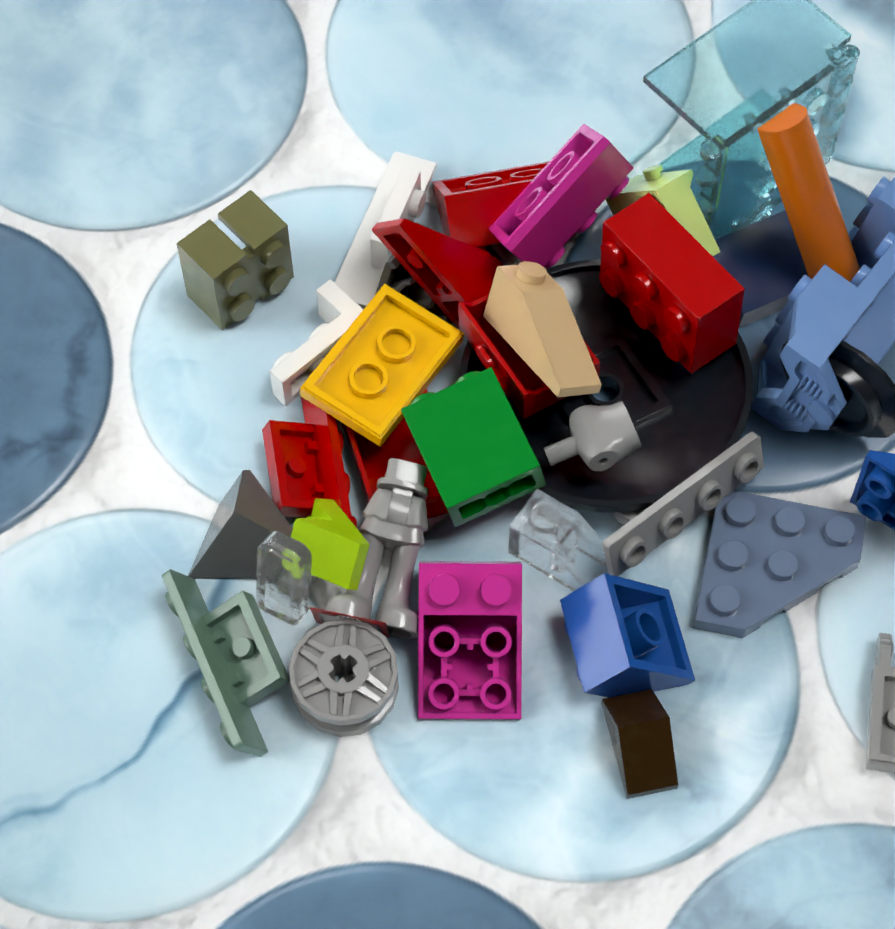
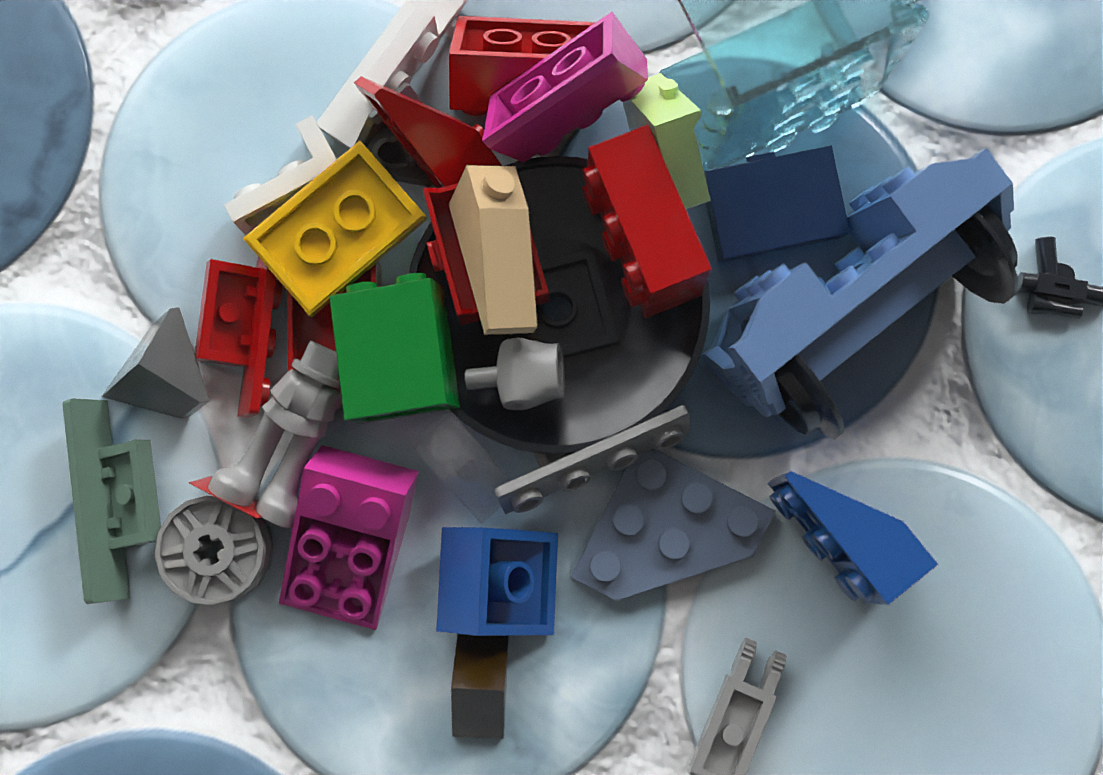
camera: 15 degrees right, 20 degrees up
(227, 278) = (215, 95): olive piece -> none
(283, 577) = (180, 438): clear piece -> none
(334, 543) = (227, 417): lime slope -> none
(807, 192) = (821, 165): orange brick -> none

